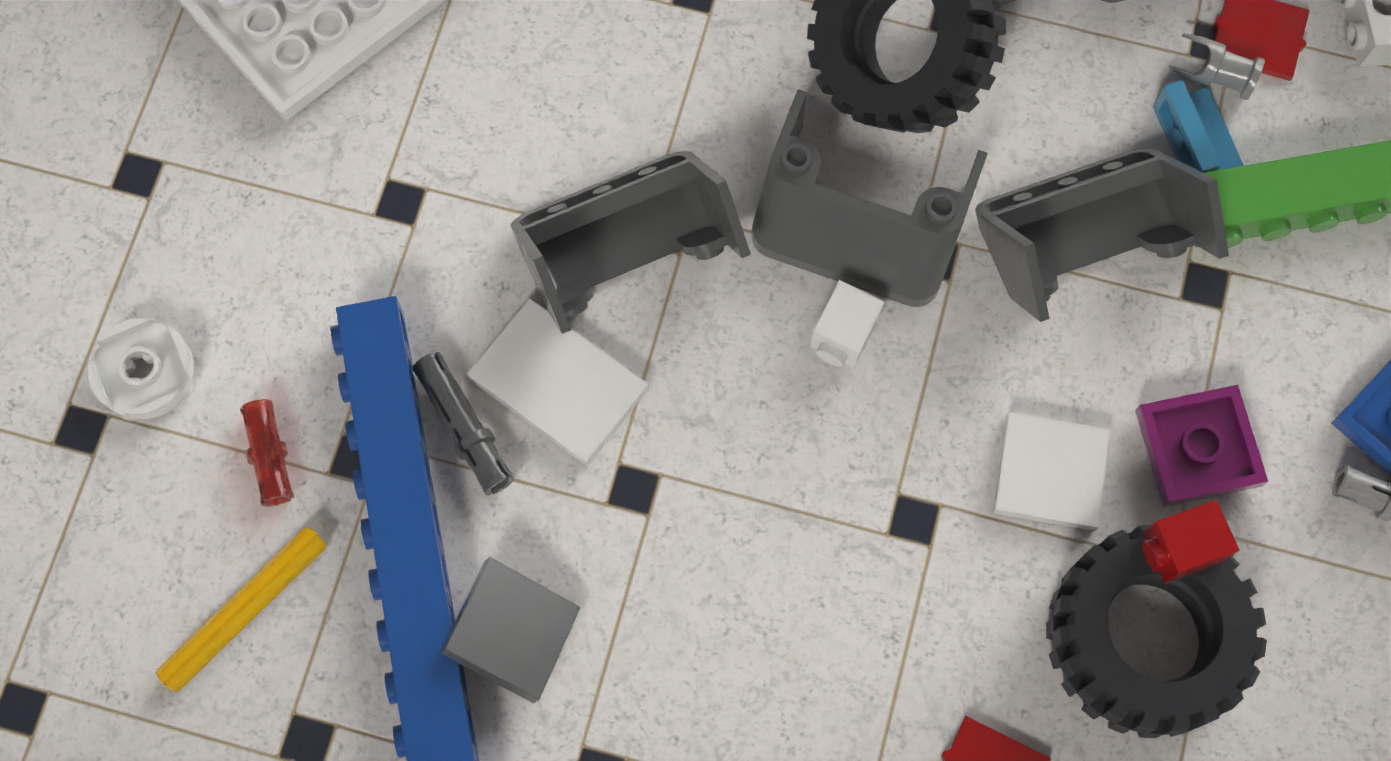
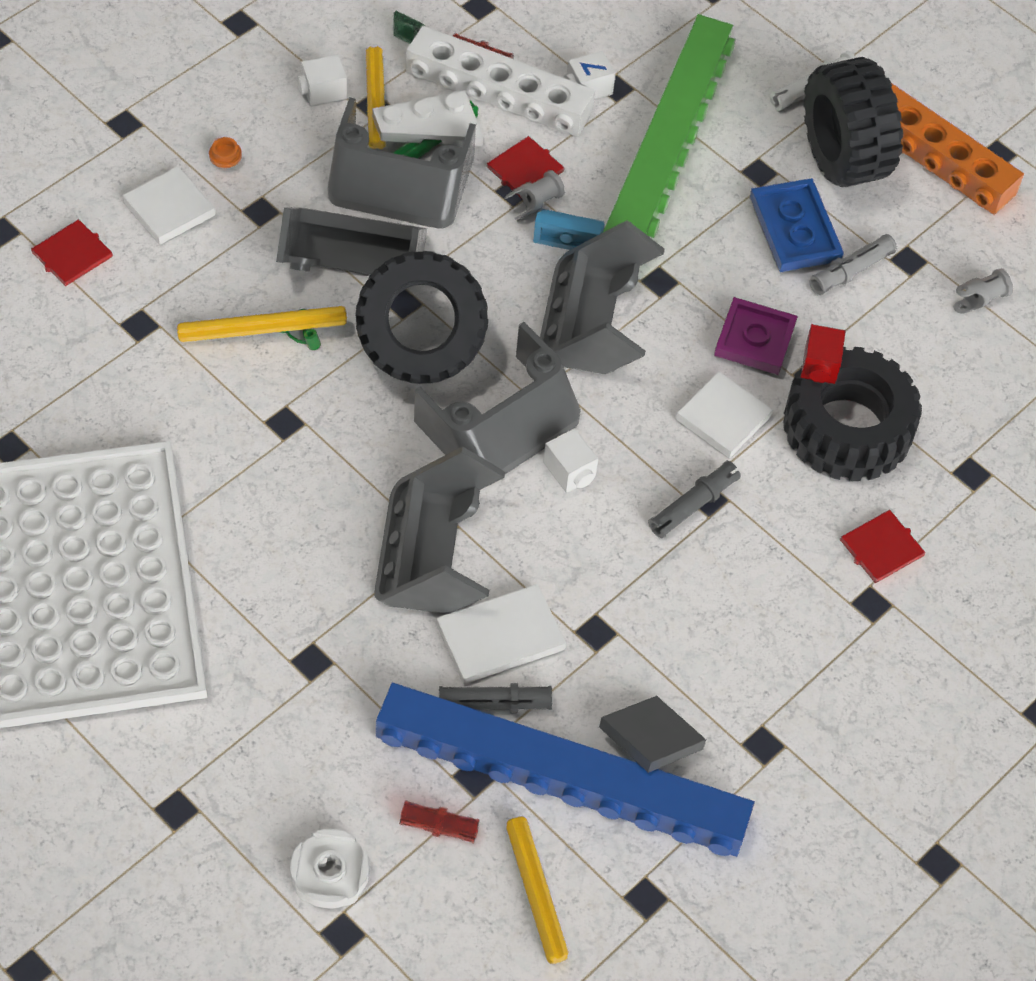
camera: 65 degrees left, 15 degrees down
(894, 502) = (704, 491): none -> dark grey pin

